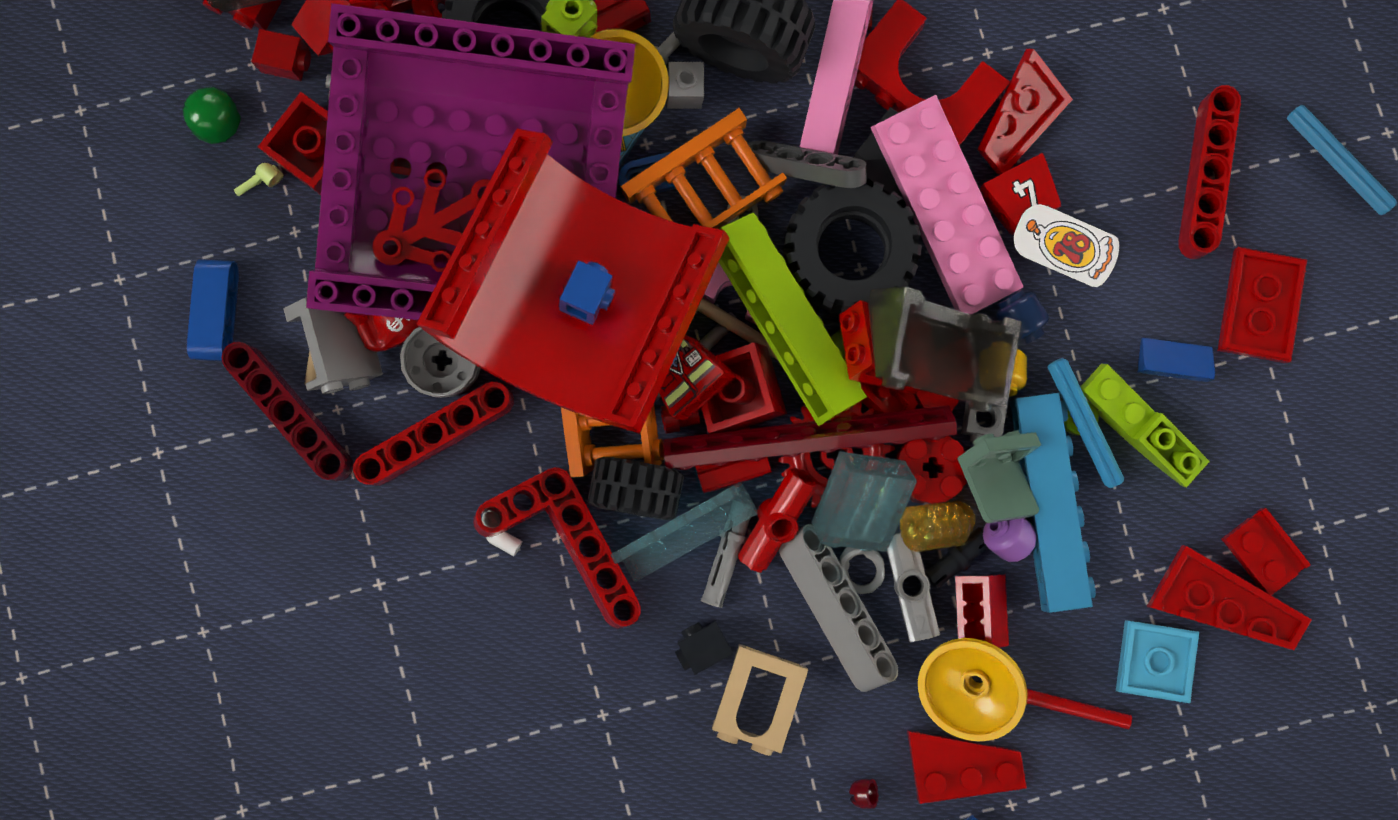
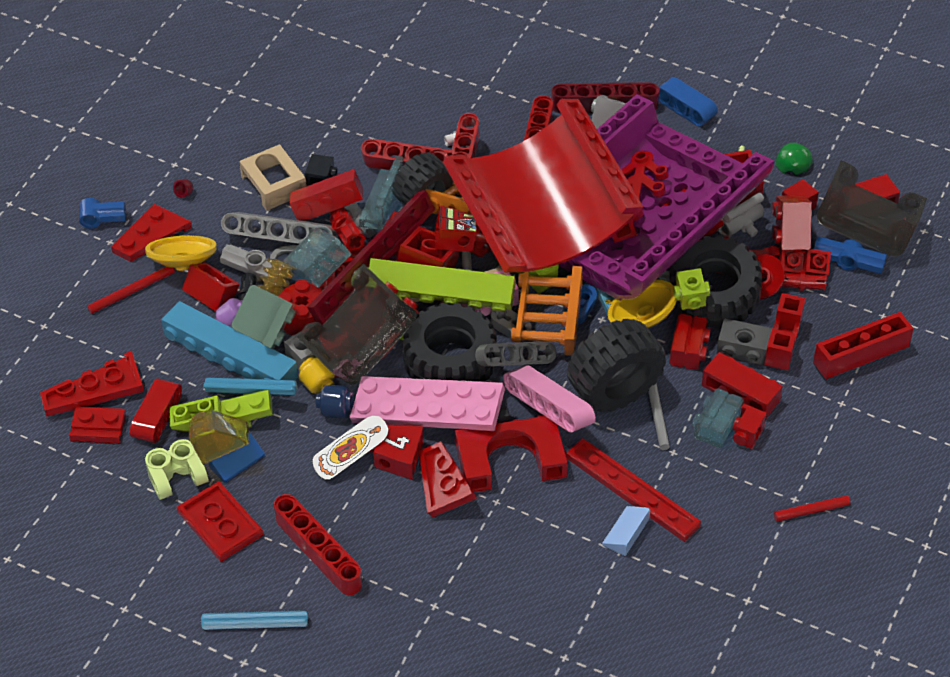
camera: 125 degrees right, 35 degrees down
(587, 292) = (535, 196): blue brick -> none
(751, 588) = (326, 196): none -> red brick
(1157, 661) = (102, 341): medium azure tile -> none
(1190, 384) = (216, 434): none -> clear yellow slope
(1199, 501) = (155, 410): none -> red beam
(1248, 413) = (179, 459): none -> yellowish green piece

